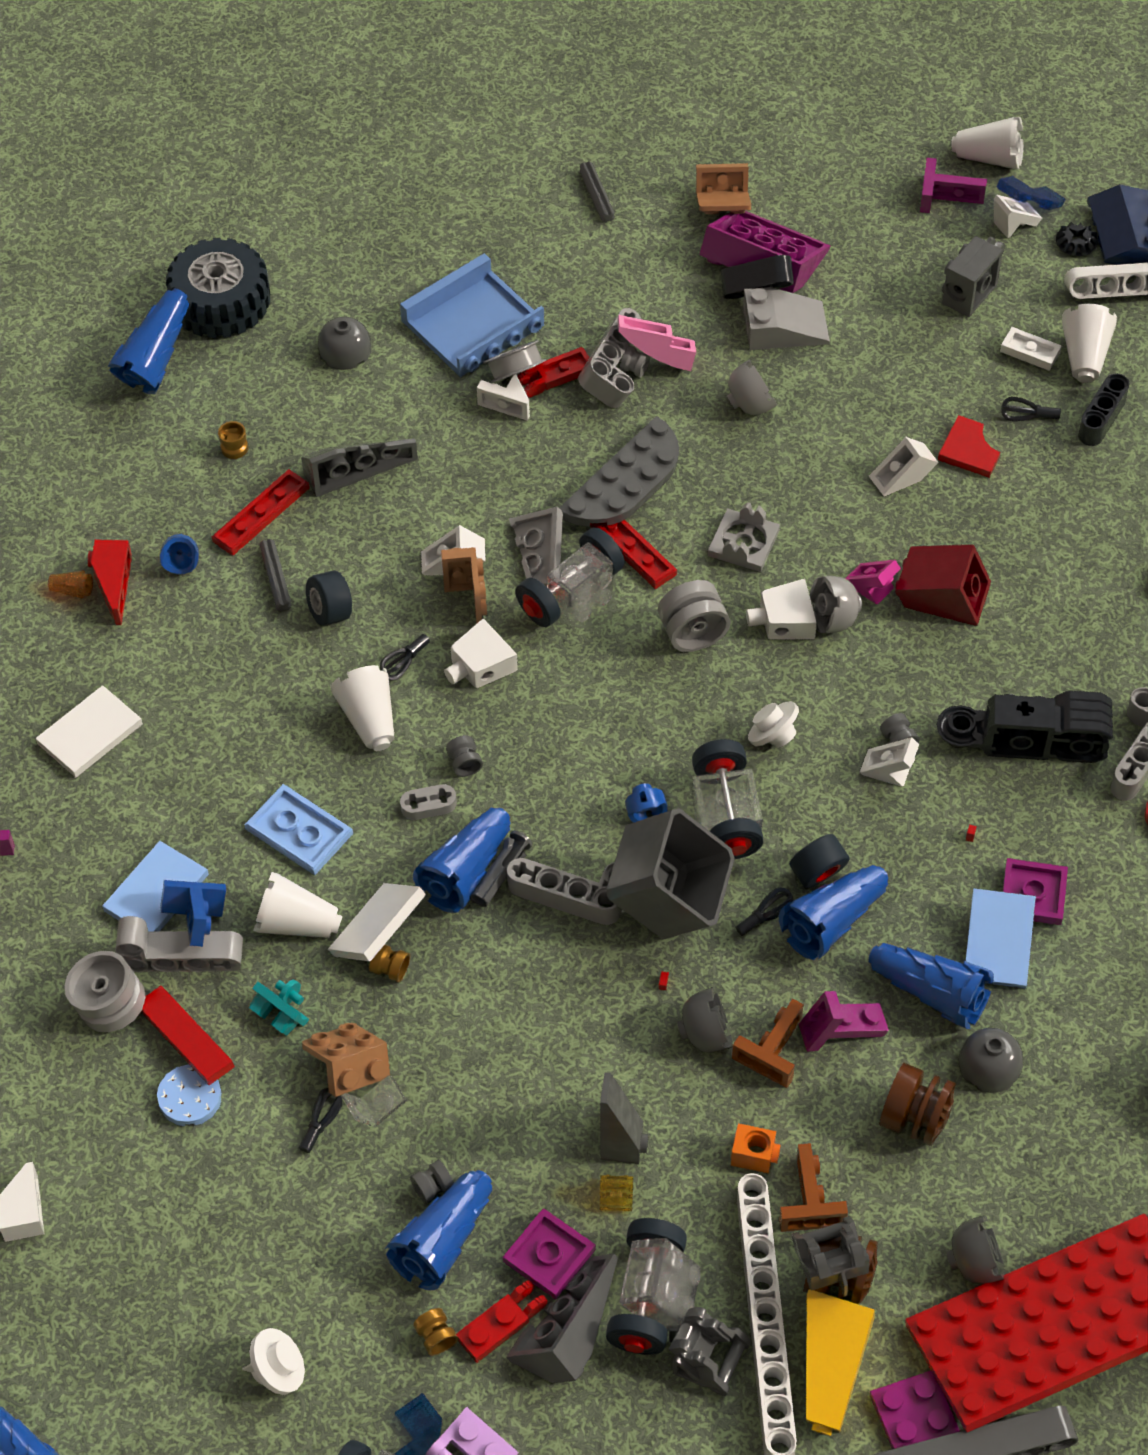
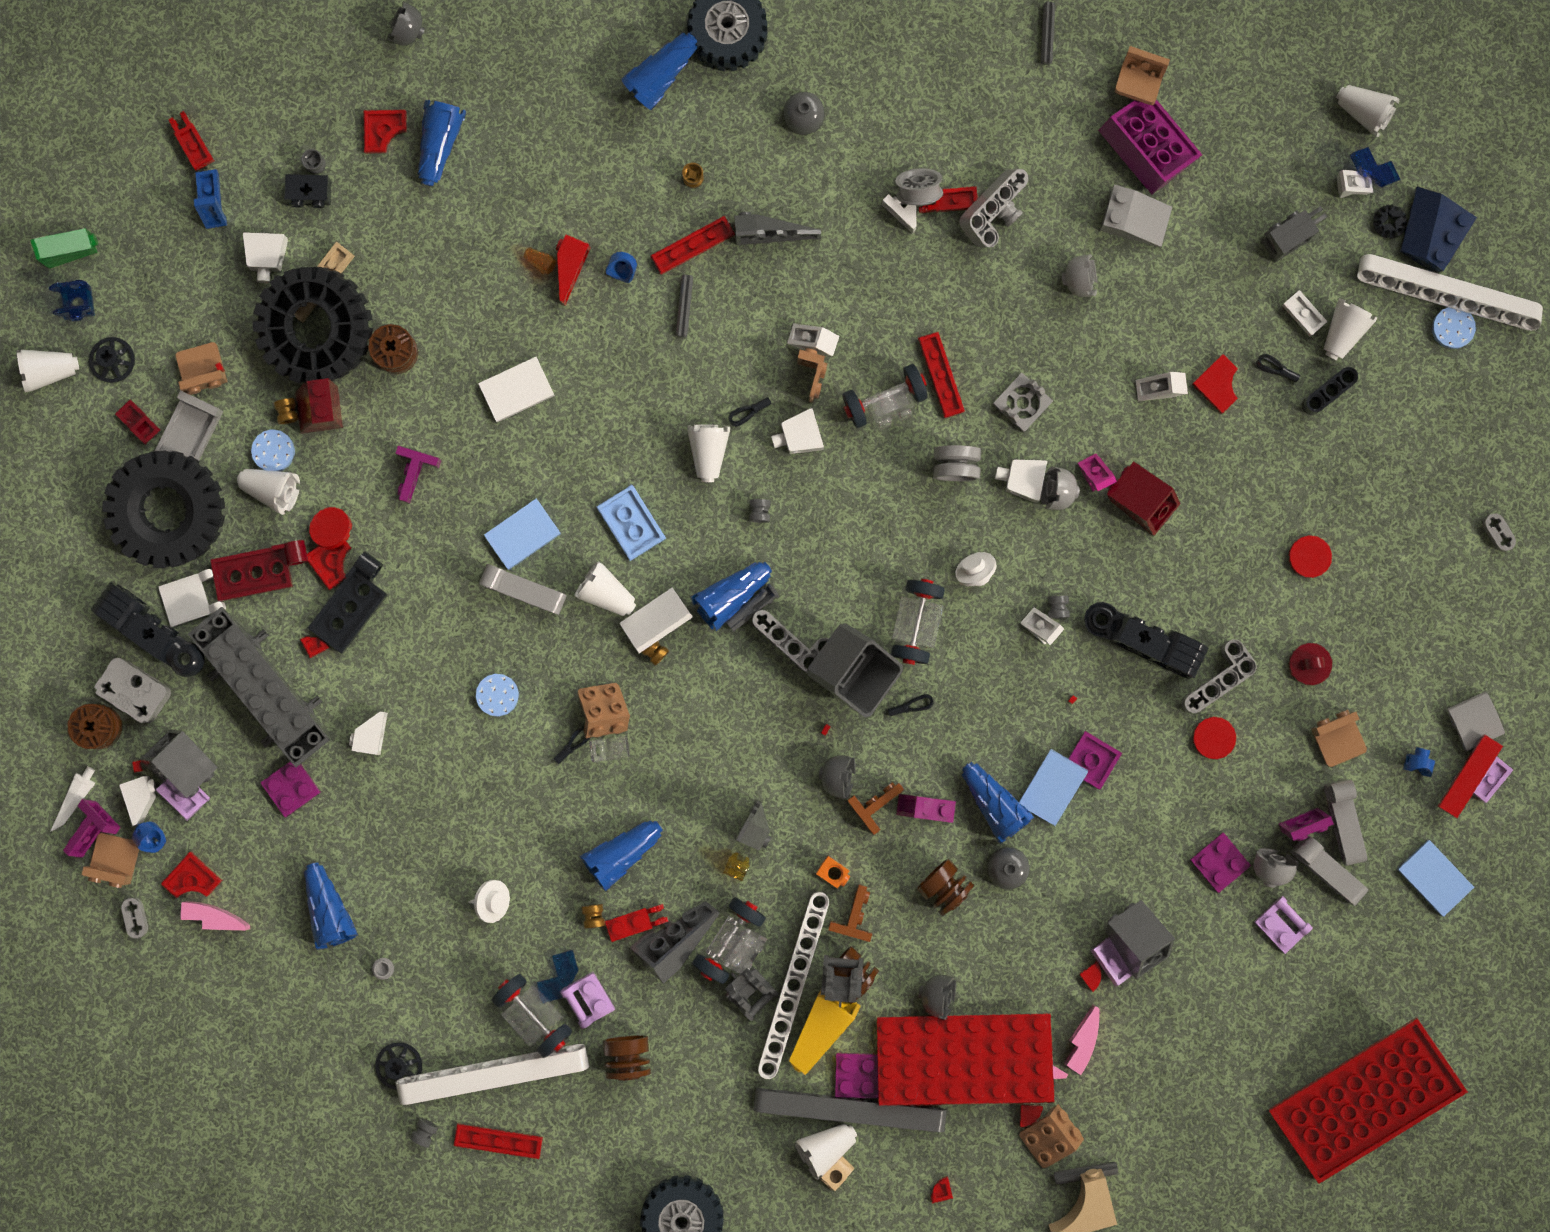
camera: 20 degrees right, 30 degrees up
(105, 991) = (464, 606): light grey wheel -> none
(186, 1036) = (507, 653): red tile -> none
(197, 902) = (544, 560): blue bracket -> none
(267, 999) = (576, 653): teal hips -> none
(328, 598) = (713, 345): black wheel -> none
(428, 802) = (722, 540): light grey beam -> none
(431, 1181) = (622, 819): dark grey wheel -> none
(470, 316) = (906, 123): medium blue panel -> none
(539, 541) = (878, 351): light grey wing -> none
(549, 1253) = (680, 891): magenta plate -> none
(626, 478) = (961, 319): dark grey plate -> none
(645, 799) = (865, 599): blue piece -> none
(657, 341) = (1030, 209): bright pink slope -> none
(762, 273) = (1129, 175): black beam -> none
(819, 860) = (960, 687): black wheel -> none
(830, 910) = (950, 727): blue cone -> none
(950, 187) = (1315, 135): magenta bracket -> none

